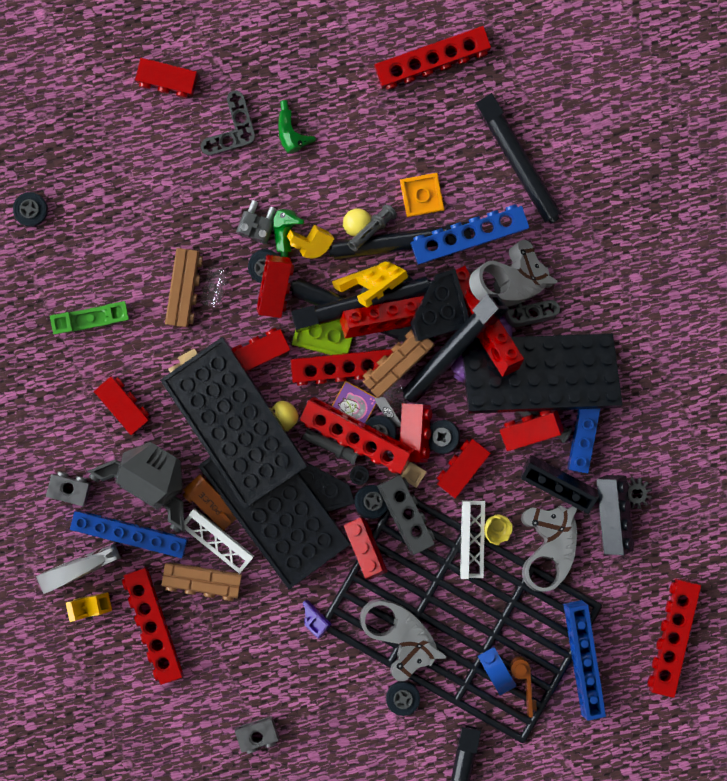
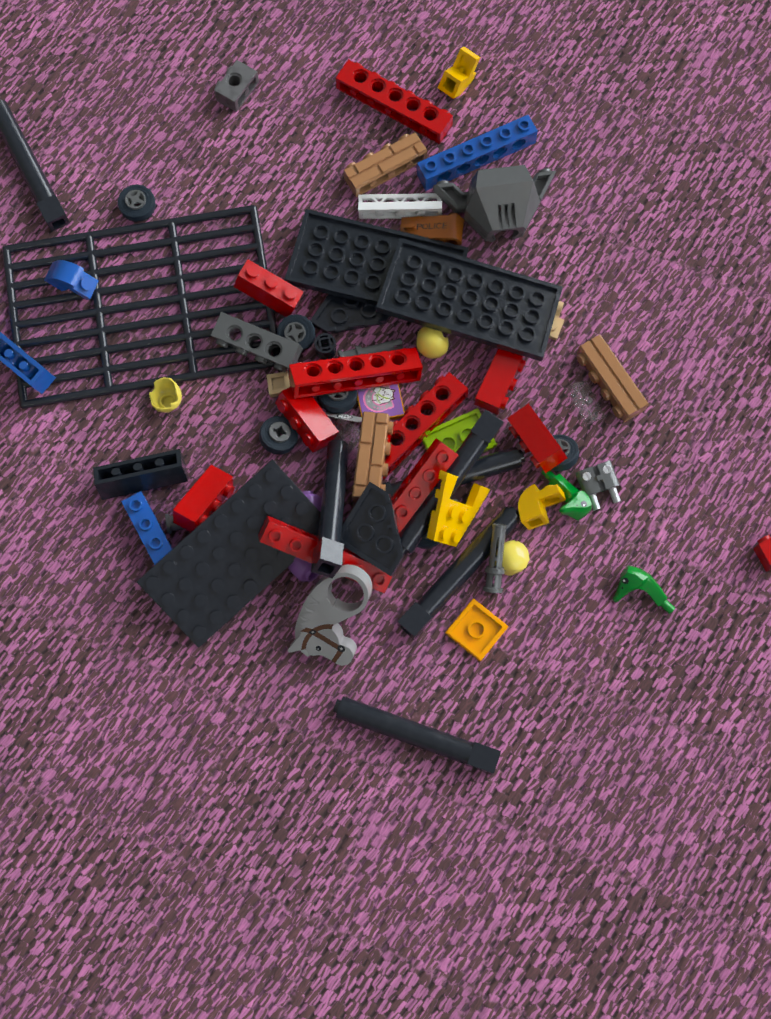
camera: 140 degrees right, 15 degrees down
(57, 491) = (564, 140): flat silver brick -> none
(77, 568) = (495, 89): light grey animal -> none
(89, 318) = (666, 291): bright green slope -> none
(122, 405) = (574, 245): red brick -> none
(235, 134) = (686, 545): dark grey beam -> none
(315, 620) = (263, 206): tile -> none
(416, 643) = (176, 251): light grey animal -> none
(462, 467) = (240, 422): red brick -> none
(465, 540) = (186, 362): white fence -> none
(475, 36) = (609, 714): red brick -> none
(514, 213) = (429, 569): blue brick -> none
(521, 670) = (49, 293): dark orange door -> none
(523, 314) = (296, 596): dark grey beam -> none
(560, 541) = (107, 435): light grey animal -> none
(615, 514) = (68, 486): brick -> none
(638, 485) = (69, 528): dark grey gear -> none

